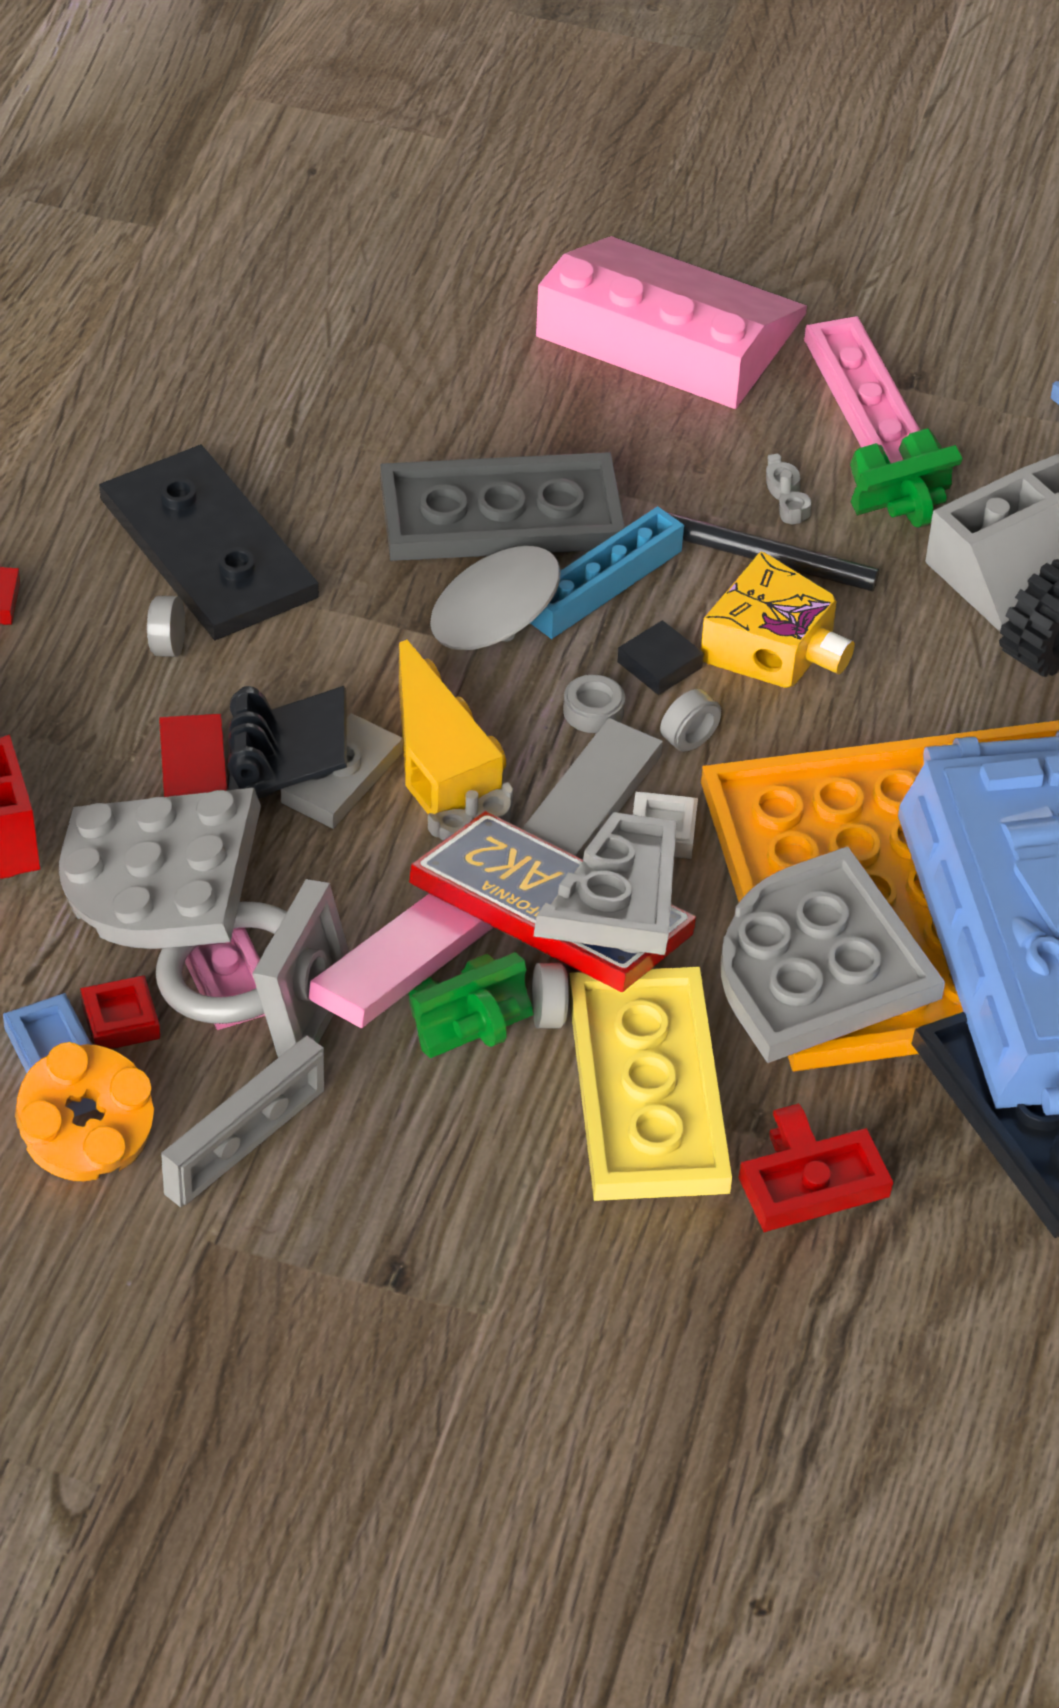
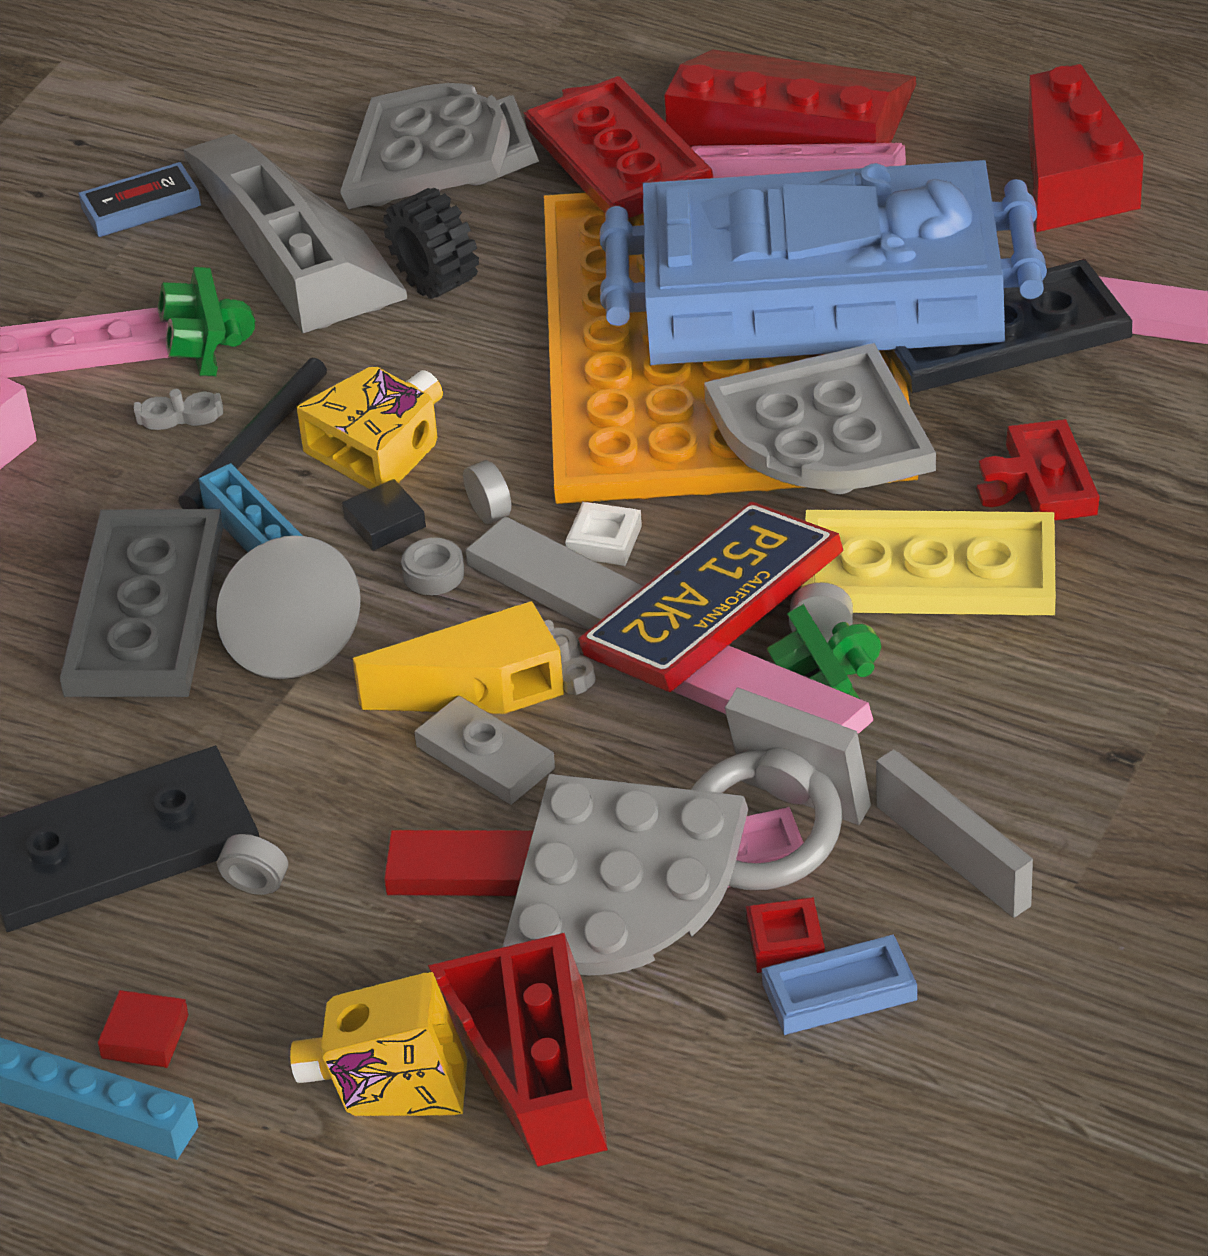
camera: 75 degrees left, 5 degrees down
(100, 1146) = (964, 945): light orange plate -> none
(285, 743) = (460, 770): black hinge -> none
(618, 890) = (730, 527): light grey wing -> none

